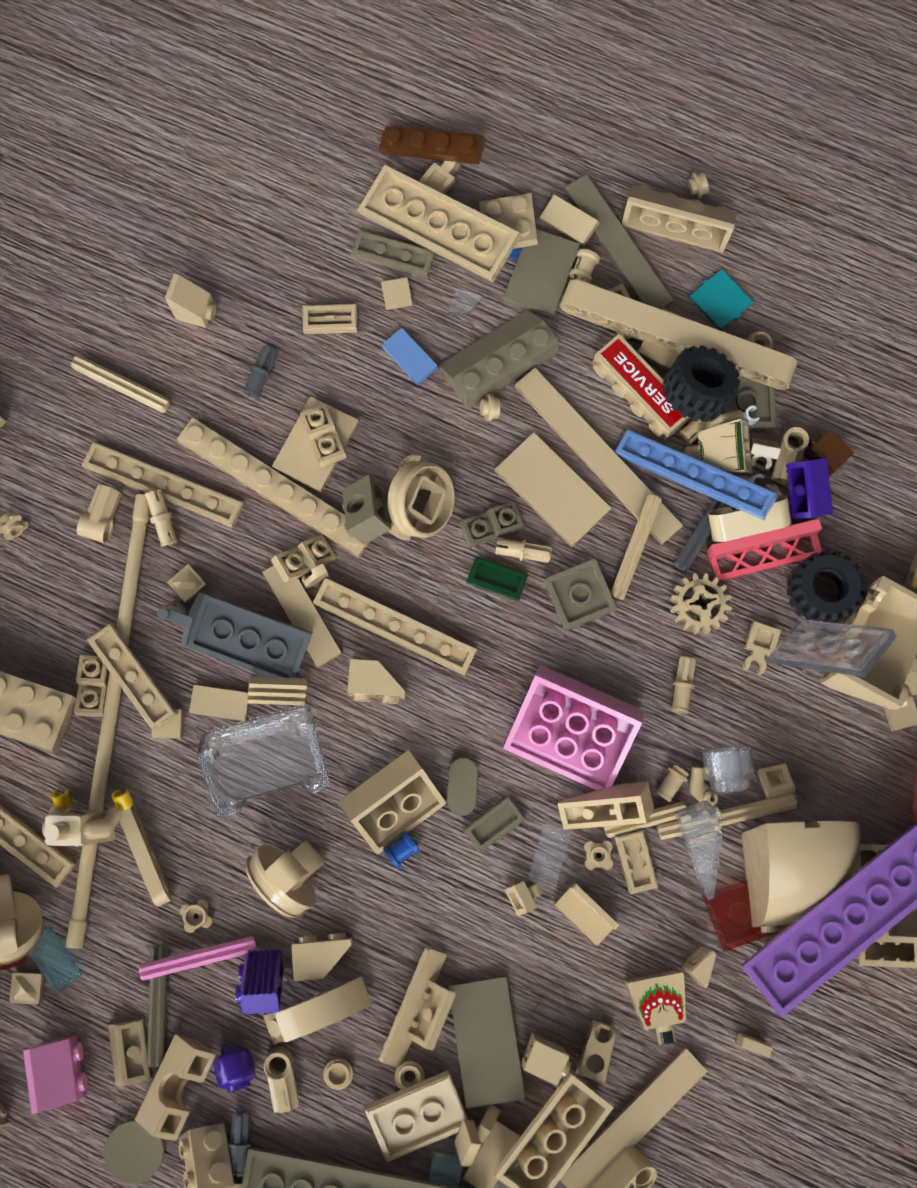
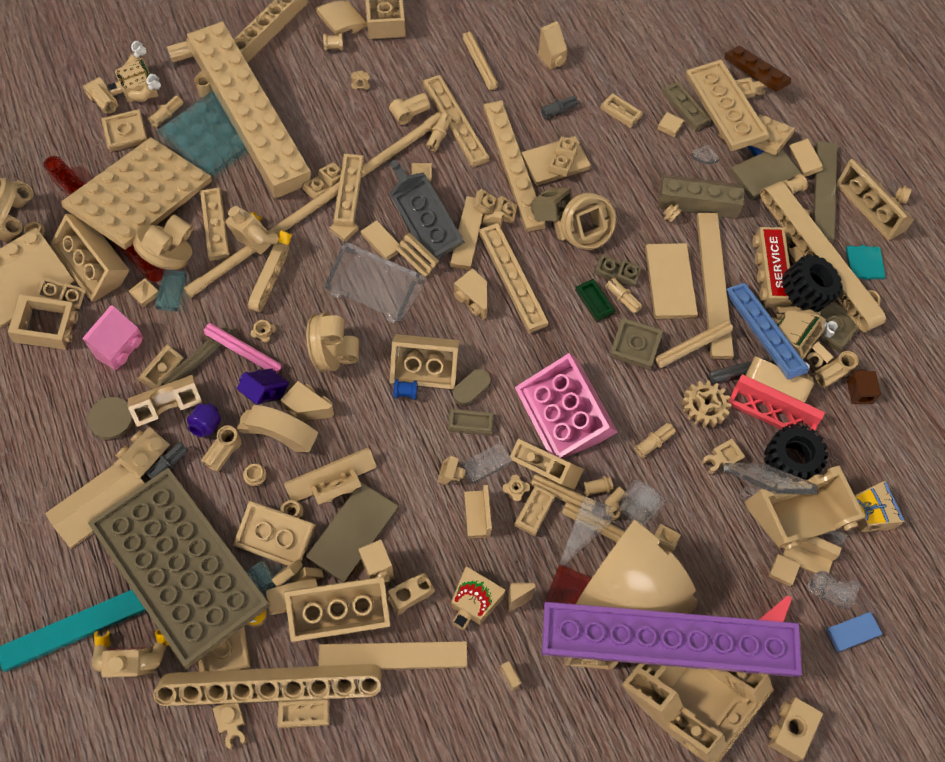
camera: 40 degrees right, 15 degrees down
(409, 356) = (649, 158): medium blue tile -> none
(809, 488) = (834, 391): dark purple brick -> none

